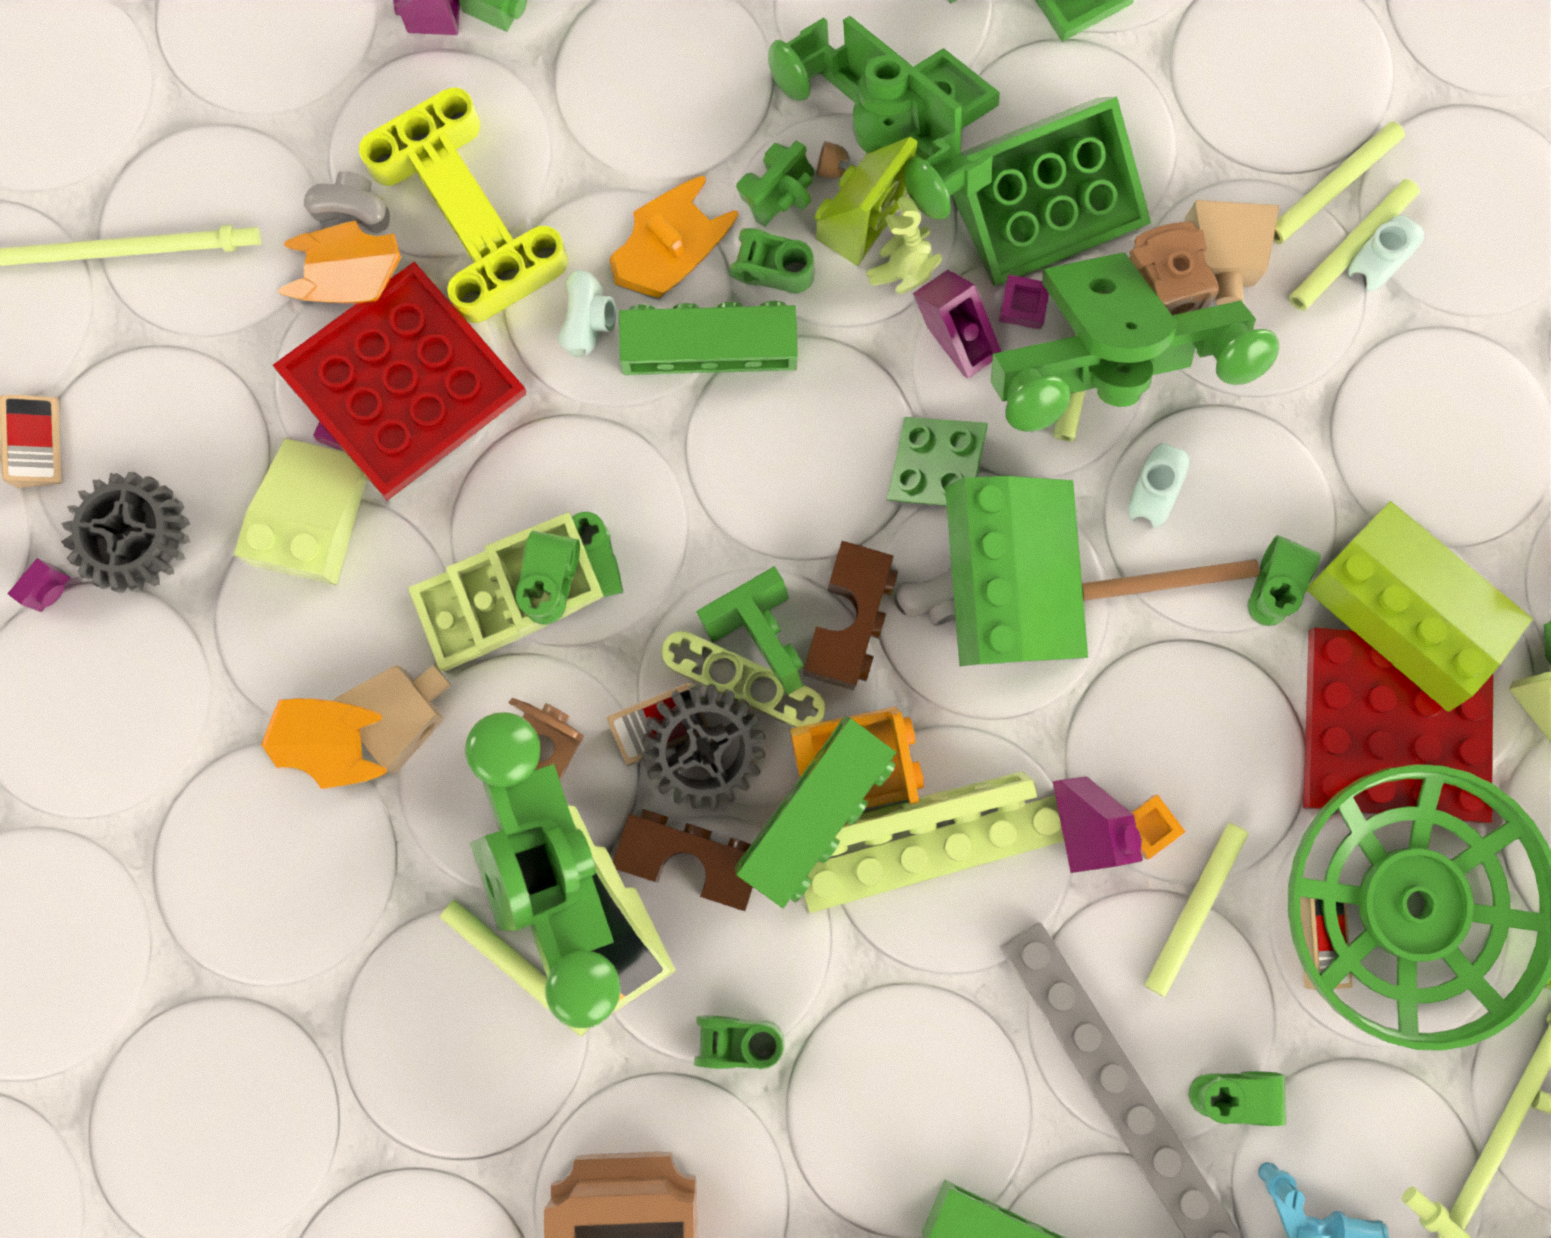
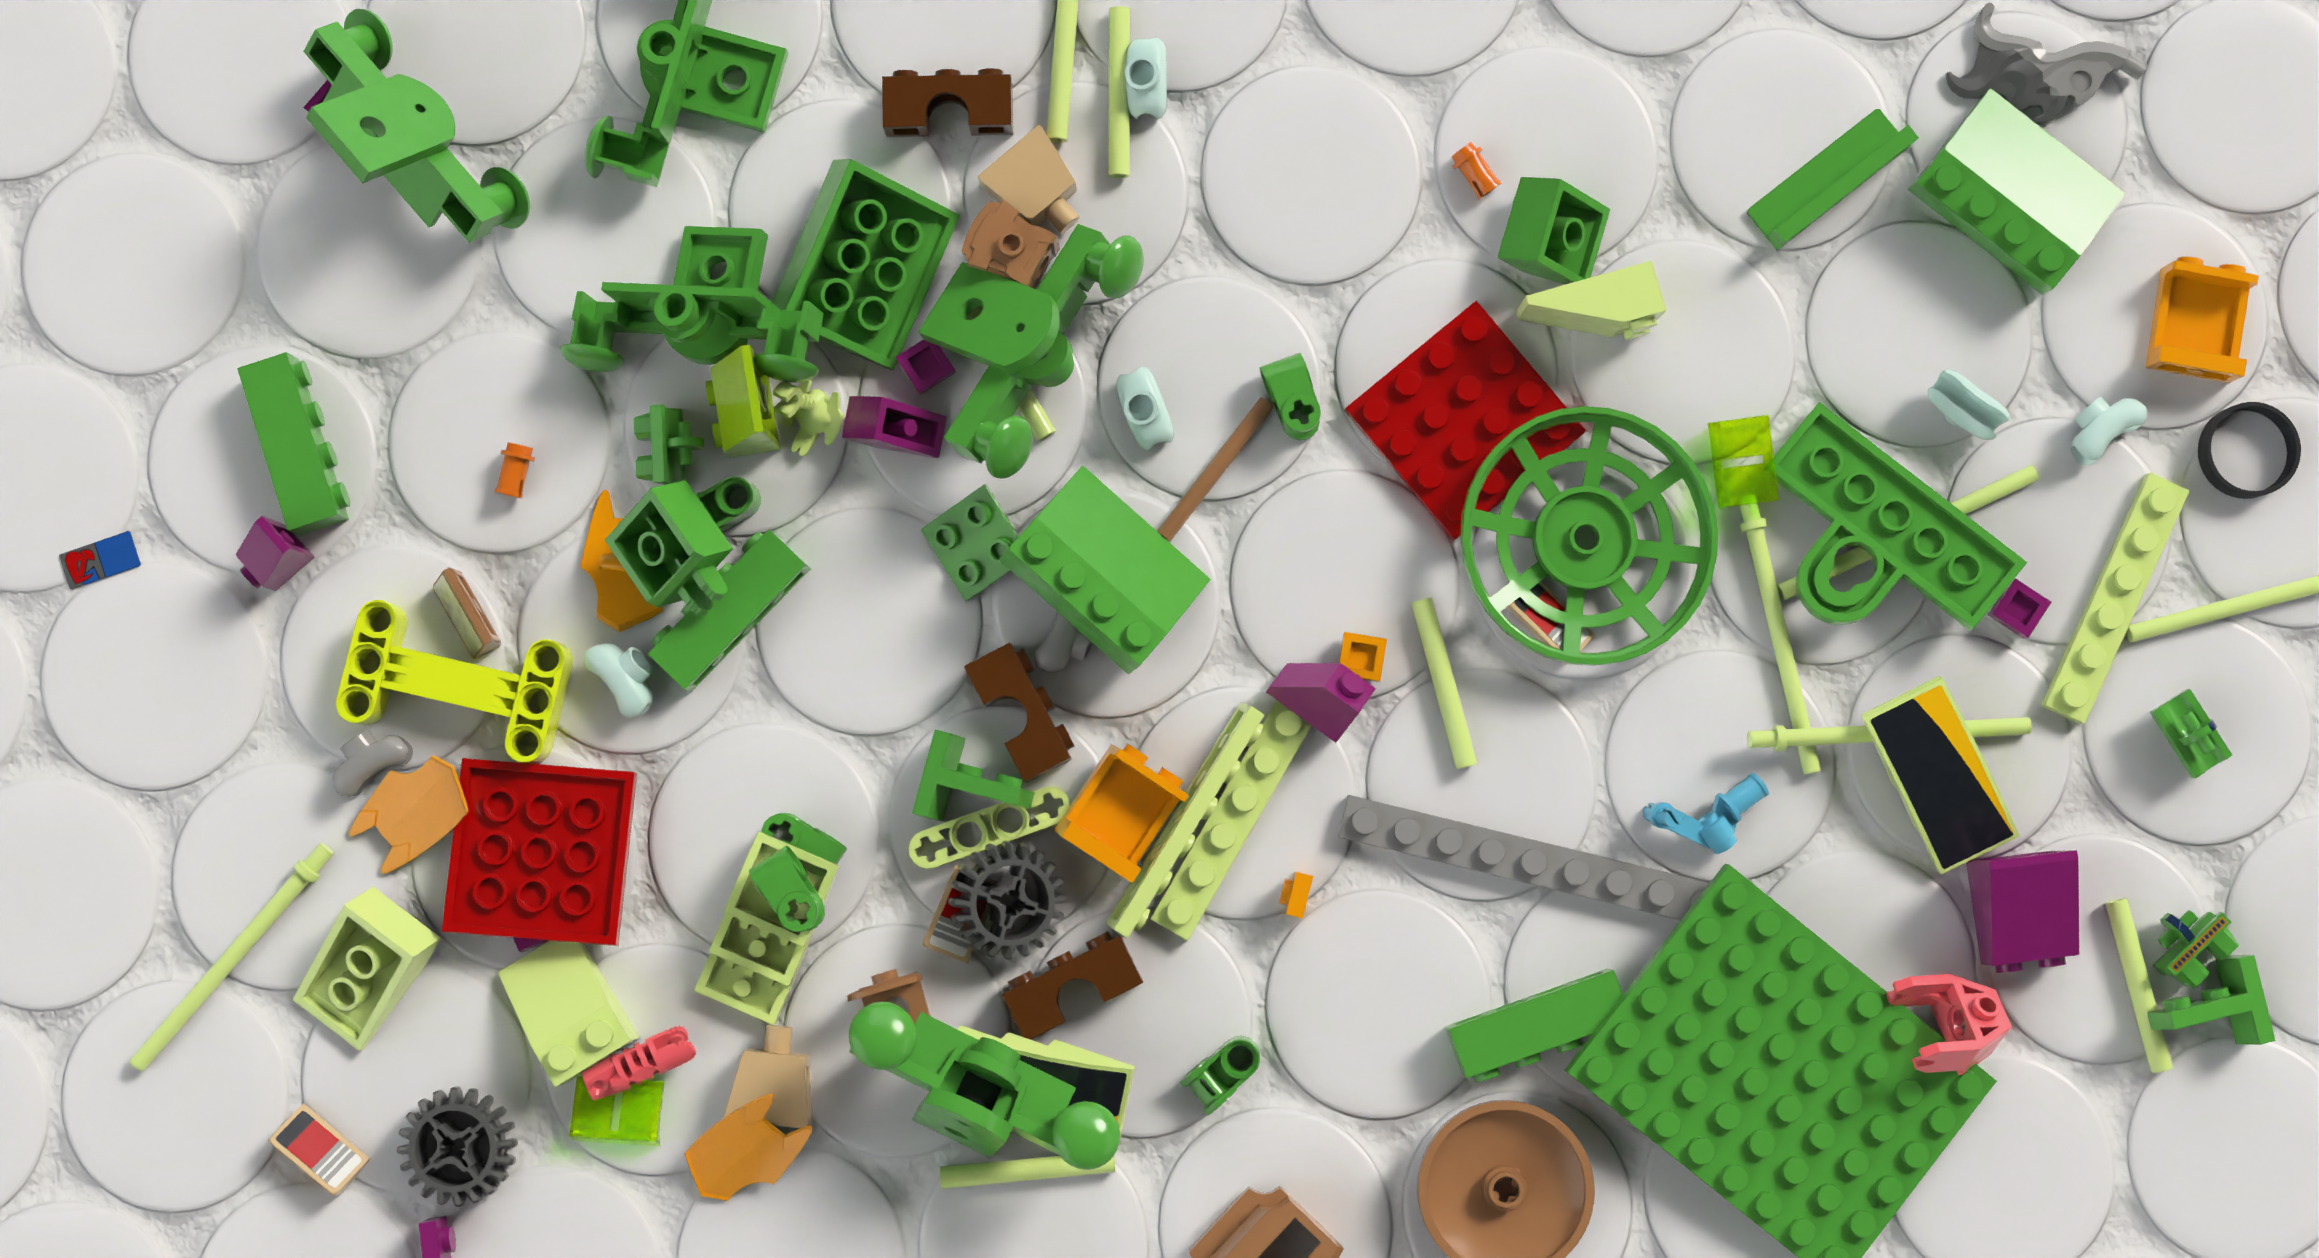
camera: 40 degrees left, 5 degrees up
(197, 341) = (365, 966): none -> yellowish green slope
(276, 639) = (638, 1115): none -> clear neon green piece
(315, 600) = (656, 1055): none -> coral hinge
(522, 167) = (465, 613): none -> medium nougat slope
(655, 101) = (514, 469): none -> orange pin
(712, 248) = (672, 548): none -> bright green hinge
(815, 812) = (1126, 872): bright green brick -> none
(829, 161) = (686, 391): medium nougat hinge -> none
(927, 960) = (1295, 894): none -> light orange plate
(1200, 109) = (912, 99): none -> reddish brown arch
(1246, 1098) = (1592, 777): bright green piece -> none
(1421, 607) = (1399, 323): lime slope -> none

